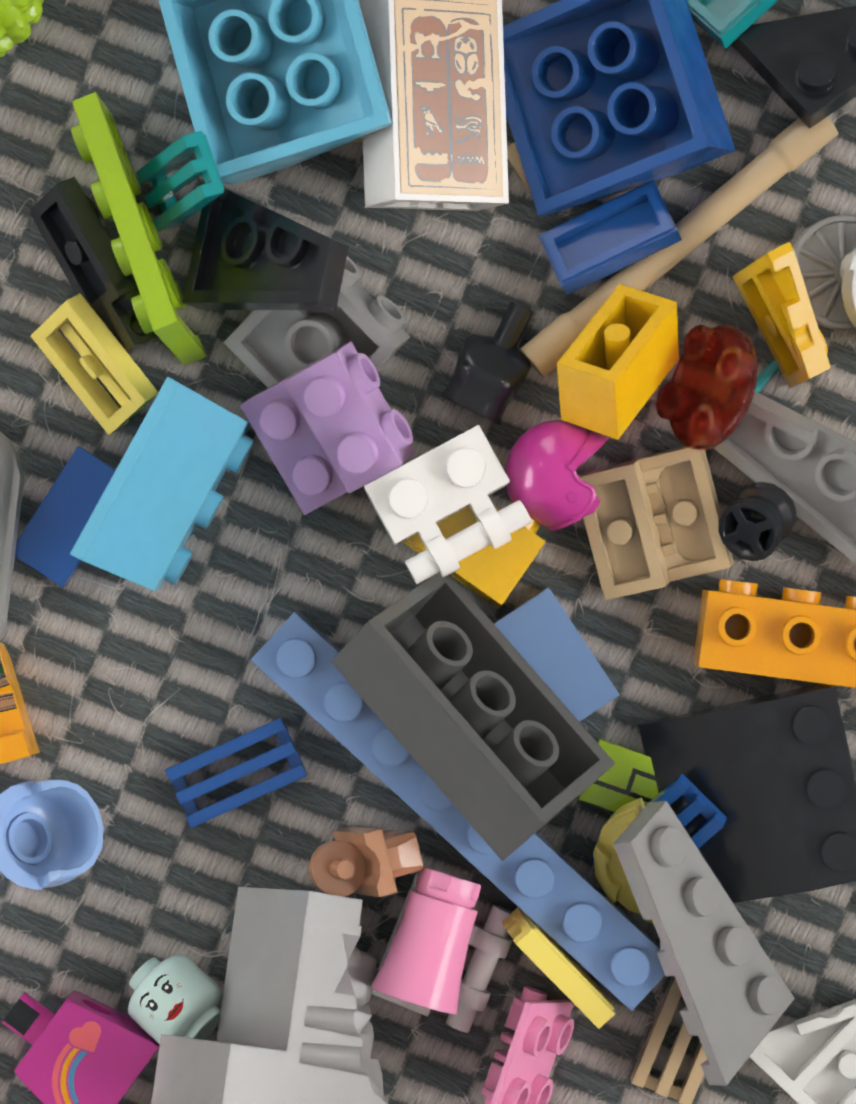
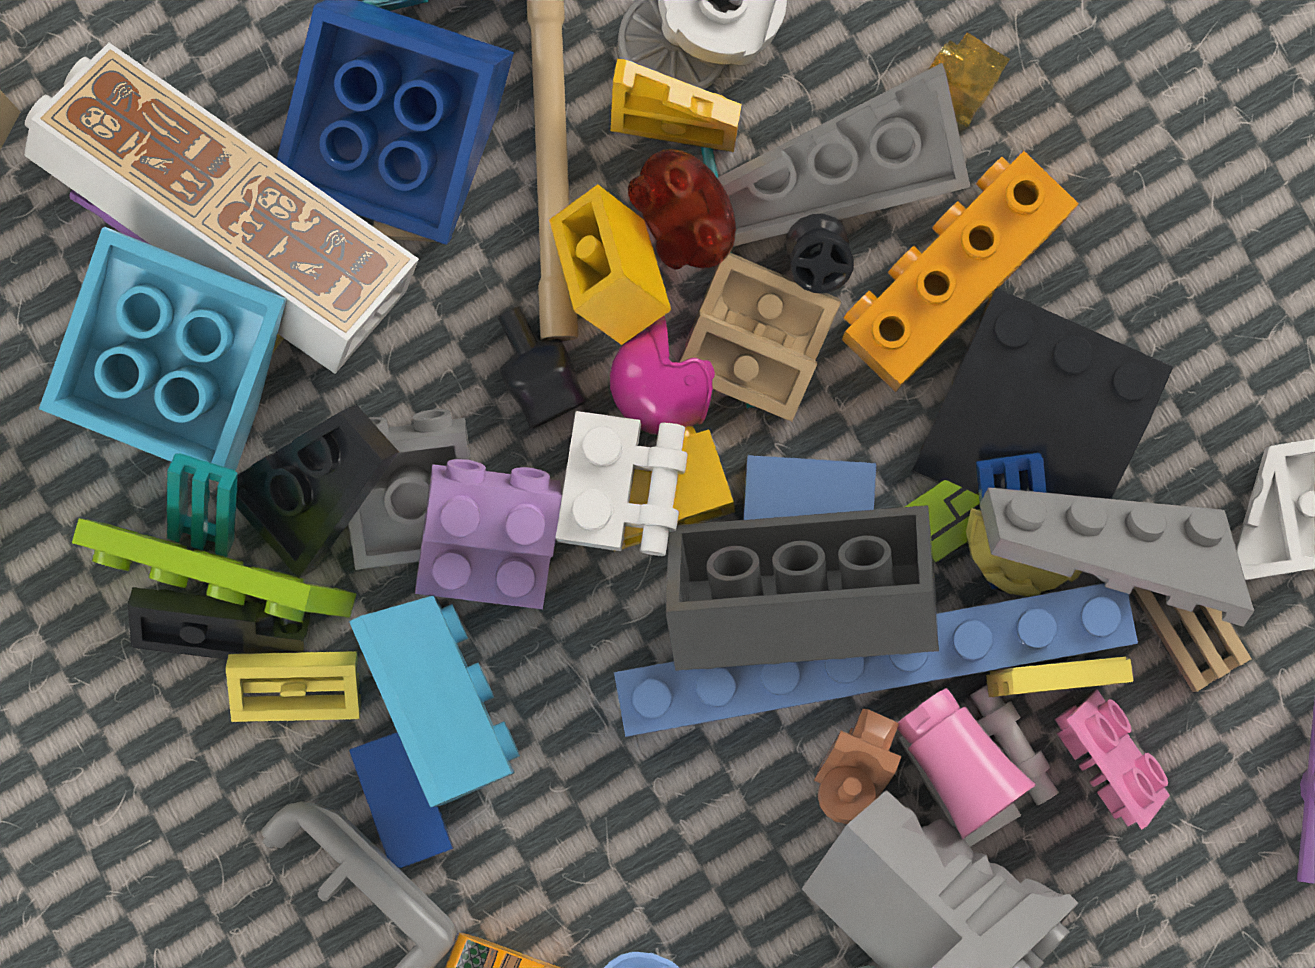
camera: 50 degrees left, 5 degrees down
(187, 794) = (695, 875): blue tile -> none
(609, 237) = (506, 201): blue tile -> none

